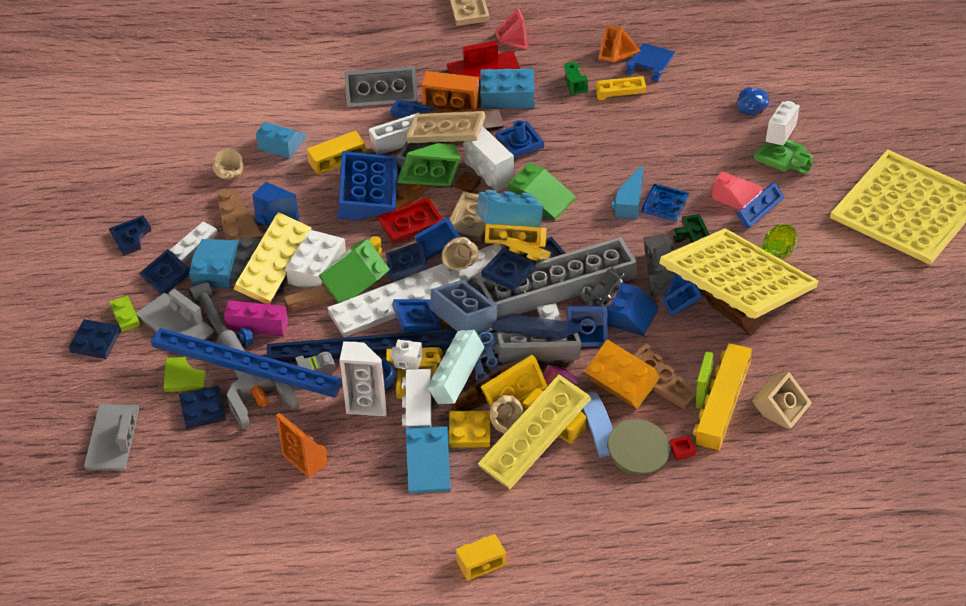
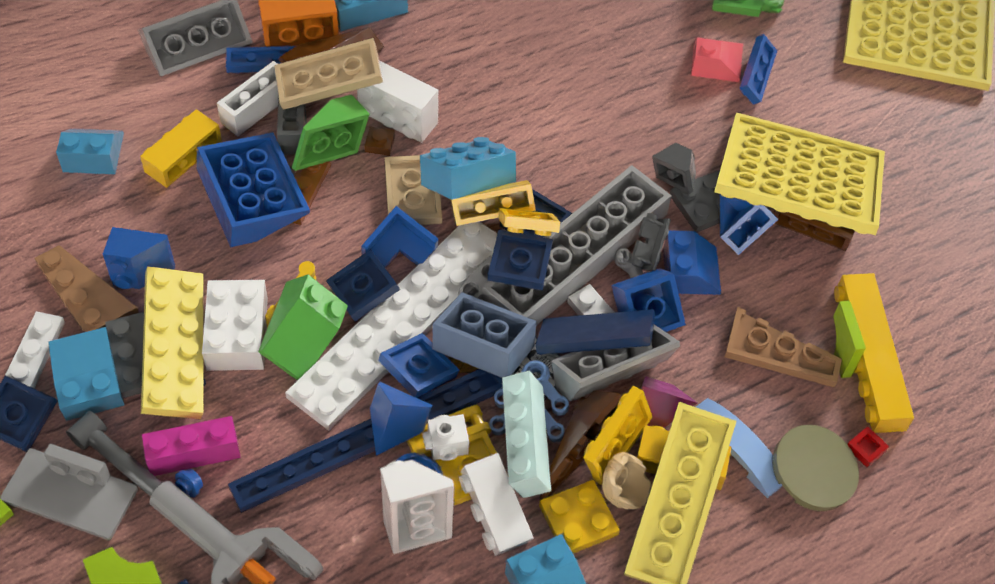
camera: 30 degrees left, 10 degrees up
(228, 164) = (33, 211): tan hair -> none
(247, 362) = (217, 532): blue plate -> none
(307, 298) = (249, 386): medium nougat piece -> none
(322, 363) = (315, 495): light grey leg -> none
(384, 335) = (396, 417): none -> blue slope
(409, 220) = (335, 220): red plate -> none
(459, 253) = (438, 254): tan hair -> none
(520, 139) = (419, 59): blue plate -> none
(544, 187) = (476, 117): bright green slope -> none
(622, 374) = (740, 365): light orange brick -> none
(628, 196) = (600, 106): dark azure slope -> none
(665, 202) = (641, 97): clear blue tile -> none
(692, 228) = (701, 125): dark green plate -> none
(780, 240) = (813, 110): clear neon green hair -> none
(782, 400) = (943, 333): tan slope -> none

